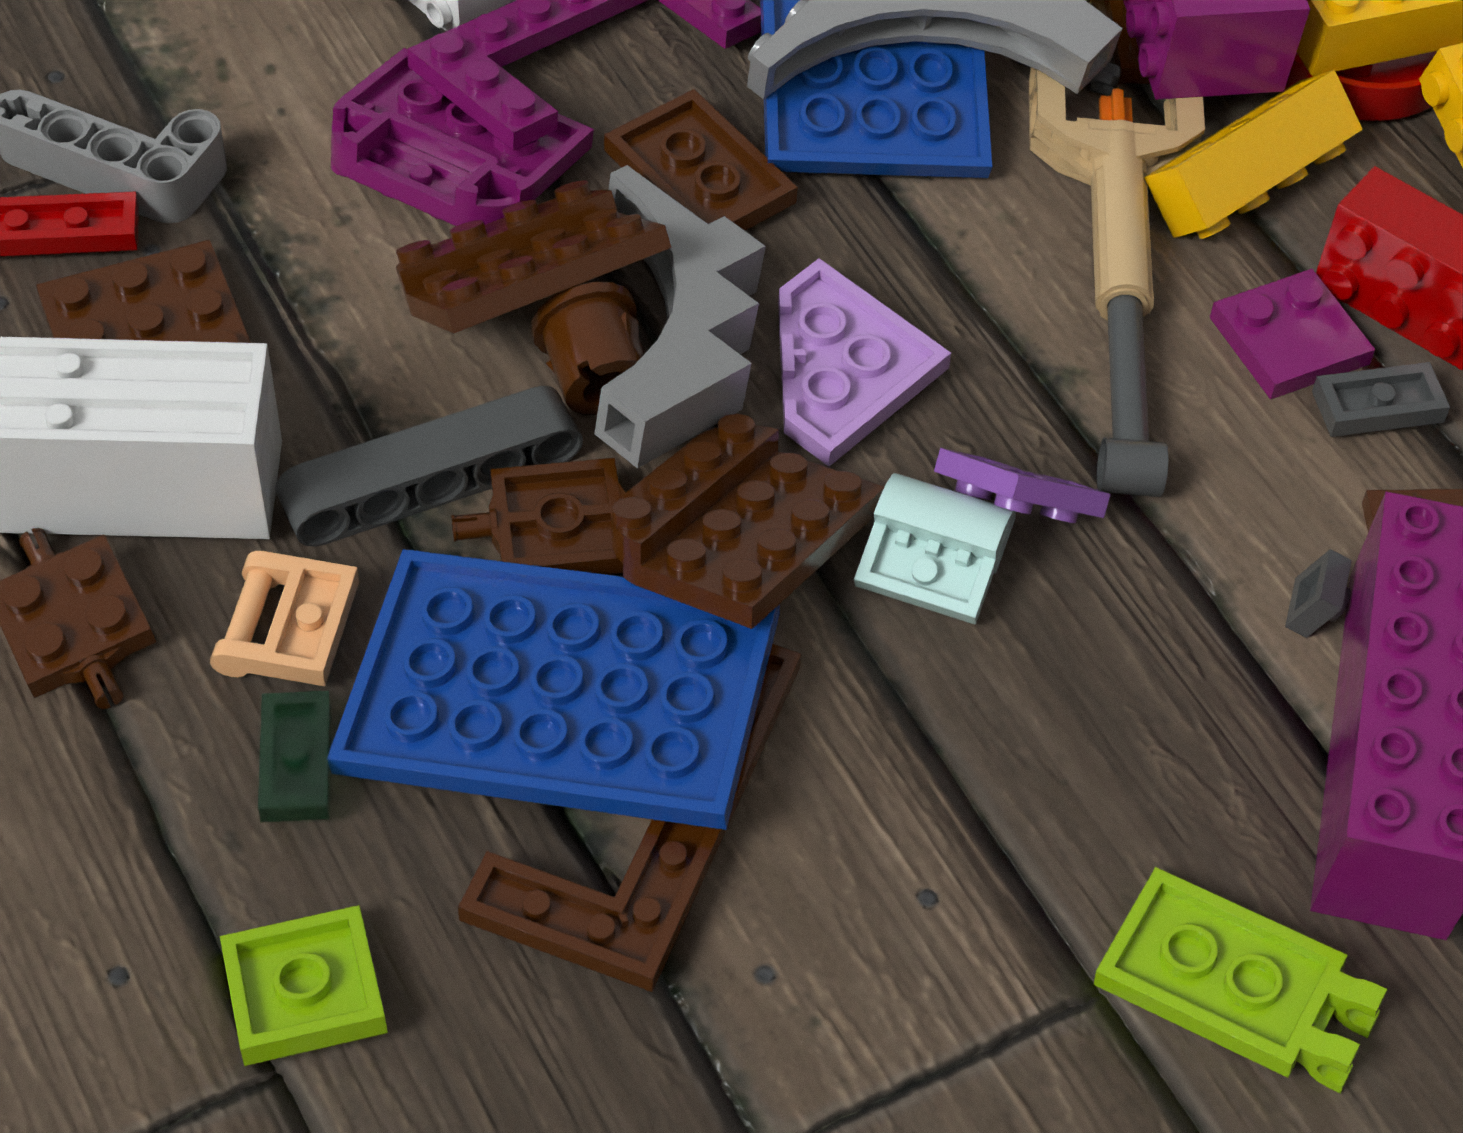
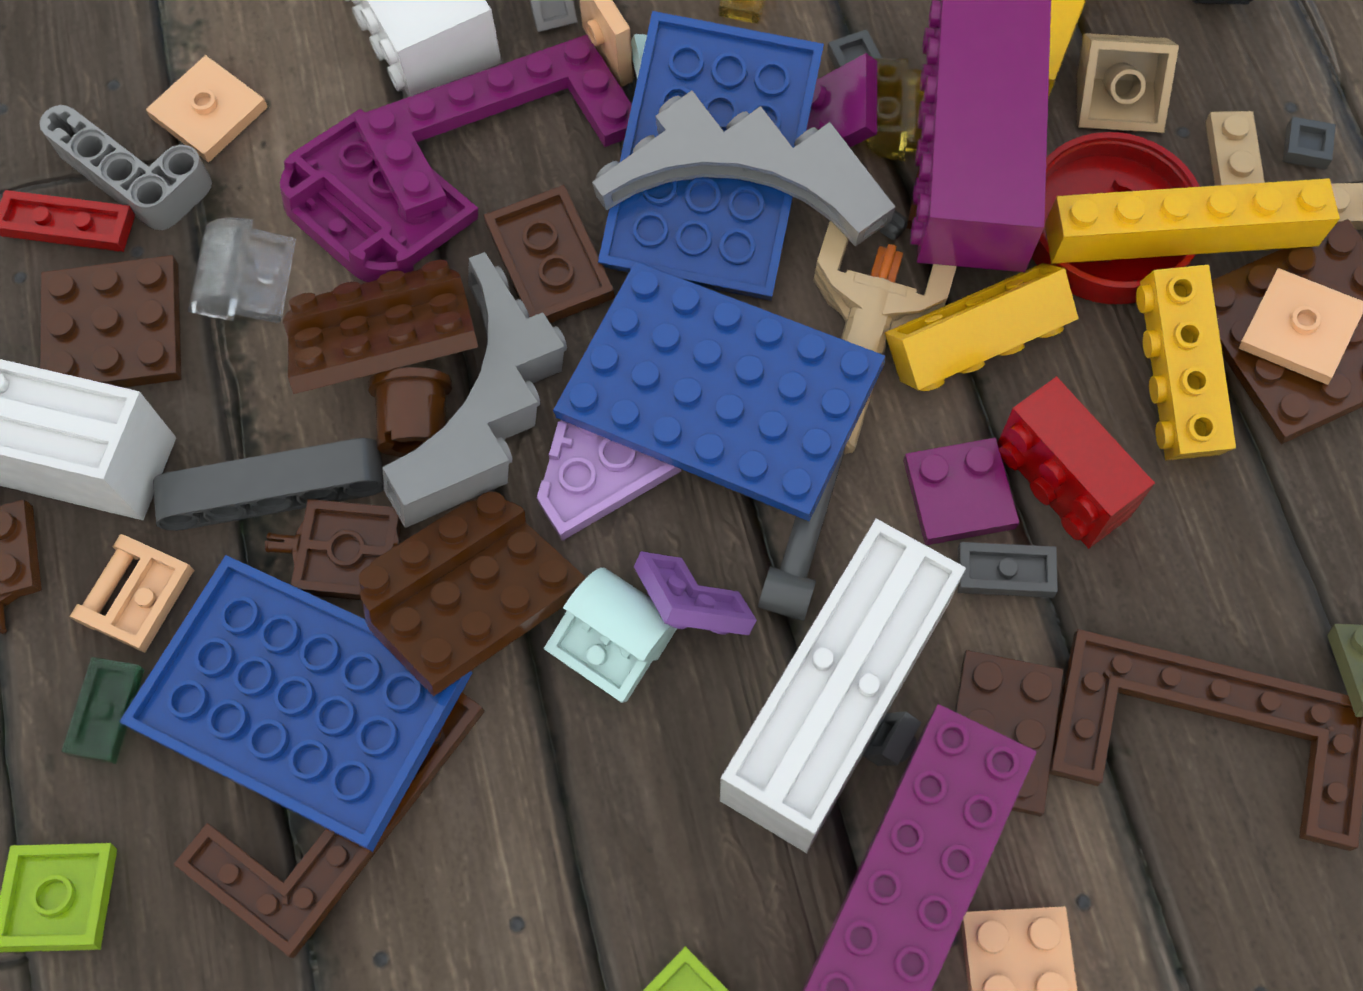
camera: 20 degrees right, 15 degrees up
(194, 72) = (207, 108): none -> light nougat plate
(310, 239) = (241, 271): none -> clear brick
(973, 261) = (721, 389): none -> blue plate
(1248, 535) = (839, 685): none -> white brick

